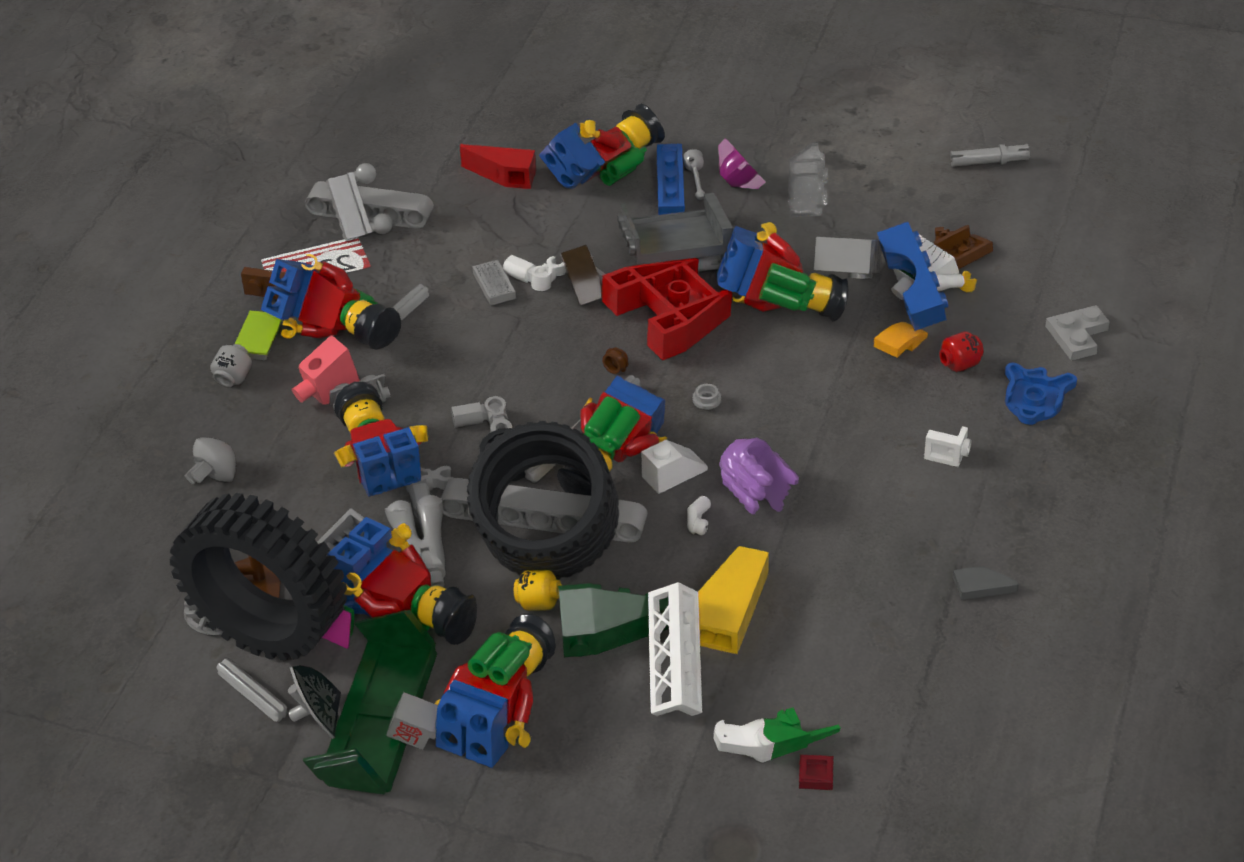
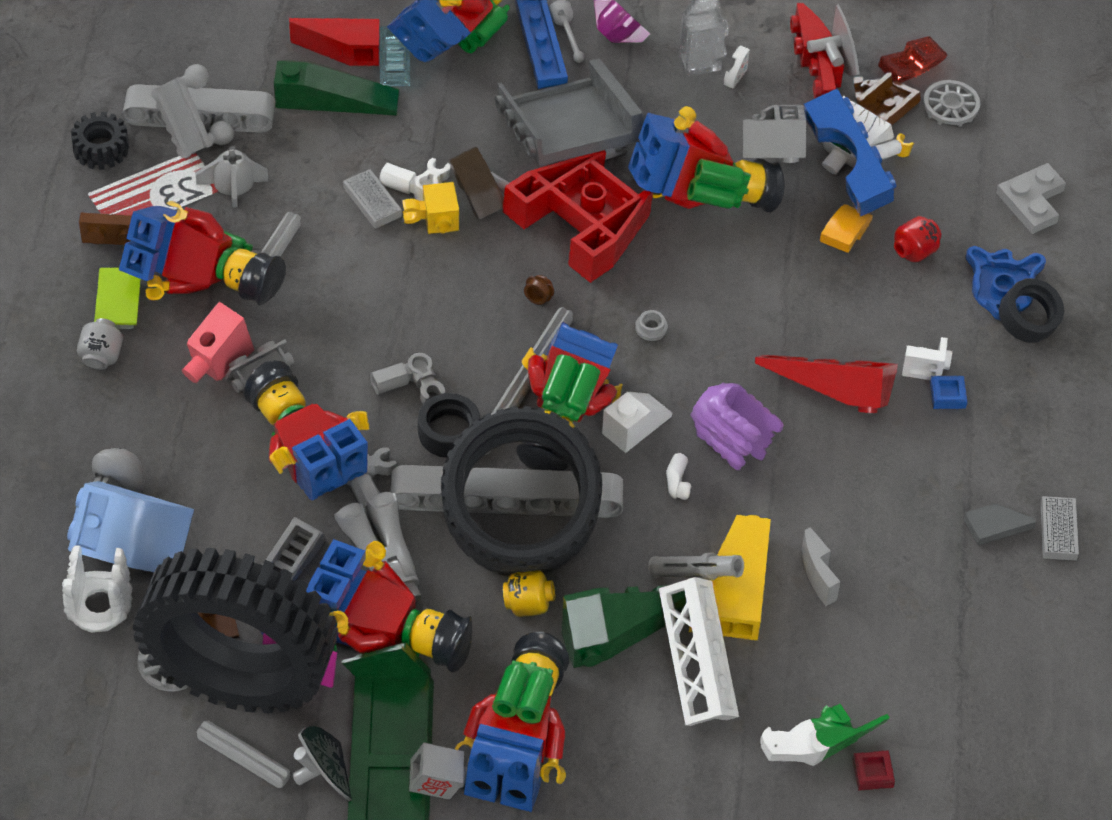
camera: 15 degrees left, 10 degrees up
(149, 542) = (83, 584): none -> white piece
(191, 486) = (125, 519): none -> light blue piece
(280, 221) = (95, 128): none -> black tyre
(381, 253) = (232, 173): none -> light grey piece
(471, 198) = (323, 88): none -> dark green wedge
(541, 181) = (393, 50): none -> clear light blue slope
(545, 292) = (437, 208): none -> yellow brick
(698, 580) = (721, 566): none -> light grey pin
(806, 599) = (816, 561): none -> light grey slope
(836, 212) = (740, 67): none -> white tile
(871, 455) = (855, 383): none -> red wedge
(907, 200) = (808, 28): none -> red slope
(924, 199) = (840, 46): none -> light grey shield
(963, 474) = (948, 392): none -> blue tile
(996, 219) = (915, 60): none -> clear red slope
(1020, 254) = (951, 103): none -> light grey wheel
(1040, 593) = (1059, 528): none -> light grey tile
(1060, 398) = (1044, 294): none -> black tyre

